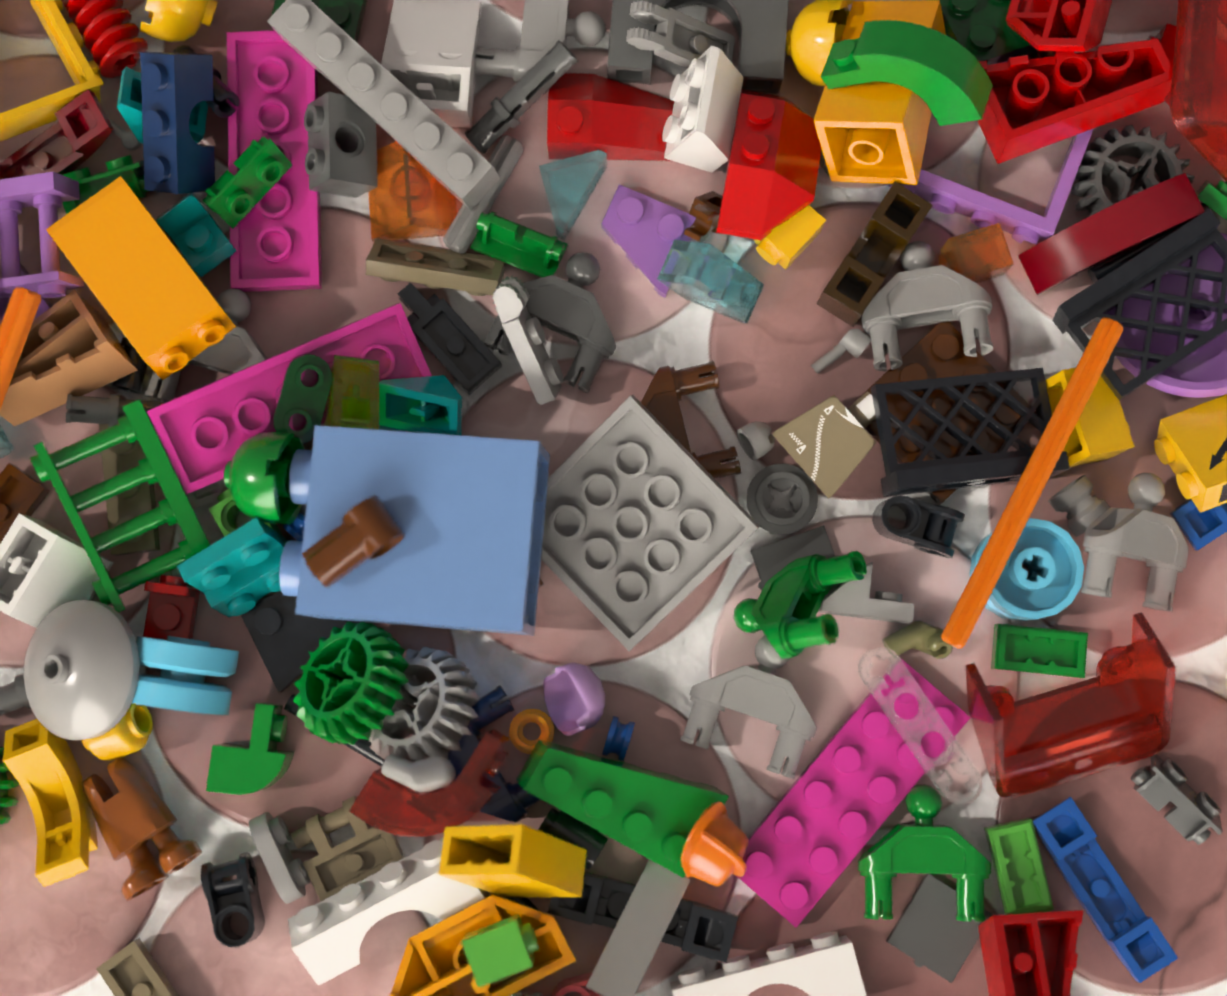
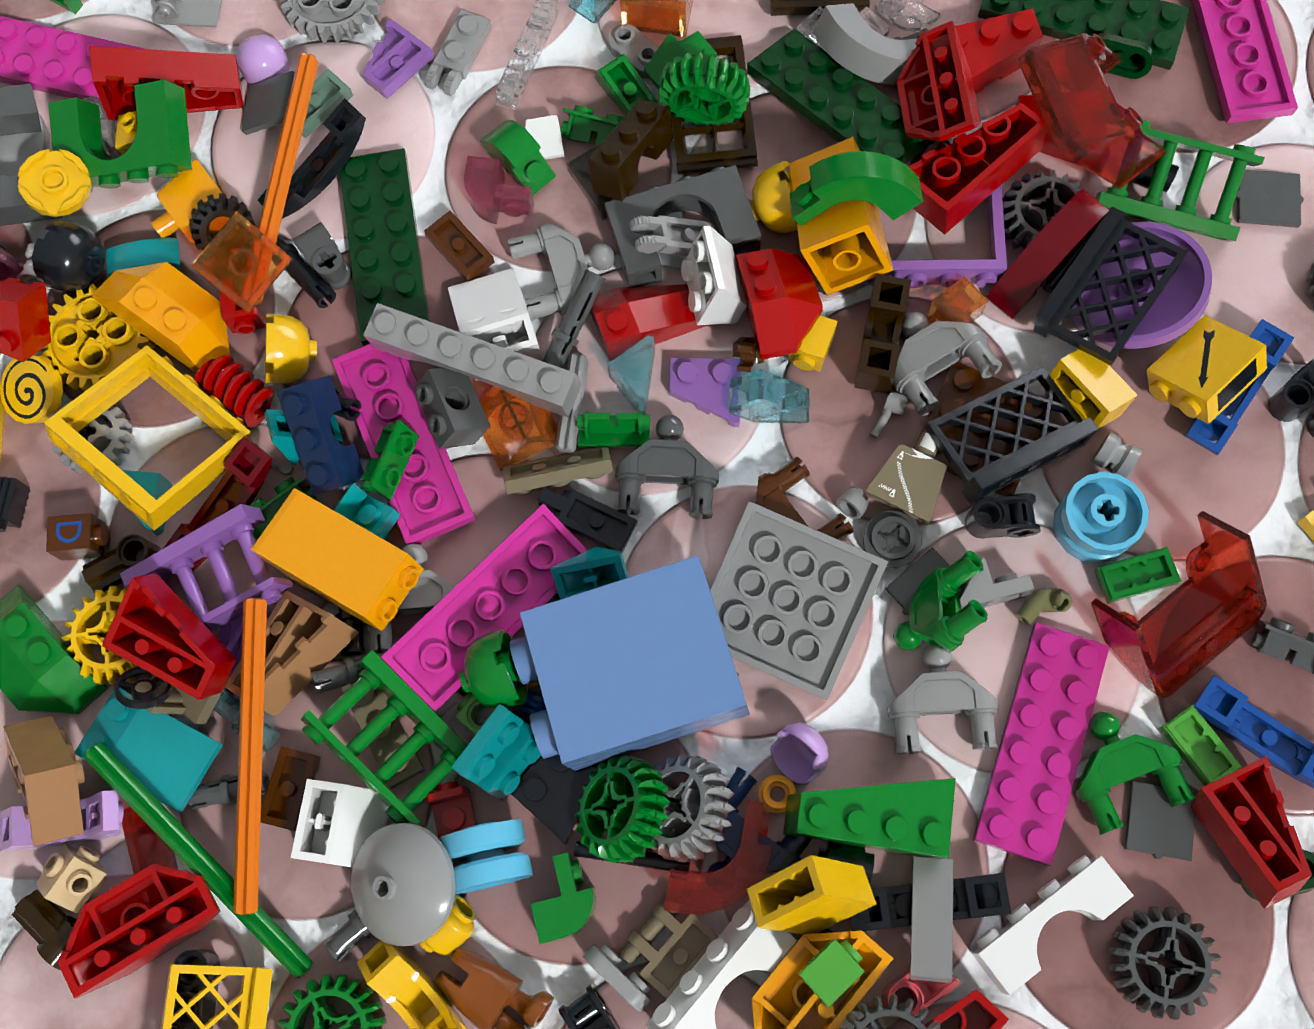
camera: 15 degrees left, 10 degrees down
(303, 399) = (495, 602): dark green plate -> none
(354, 394) = (535, 582): clear neon green slope -> none
(364, 534) = (593, 677): reddish brown piece -> none
(421, 774) = (709, 855): light grey arm -> none
(527, 340) = (650, 492): light grey hinge -> none
(618, 738) = (847, 771): blue bush -> none
(714, 847) = (964, 824): orange piece -> none
(924, 721) = (1072, 670): clear beam -> none
(1032, 483) = (1077, 451): orange axle -> none
(1138, 536) = (1174, 459): light grey connector -> none

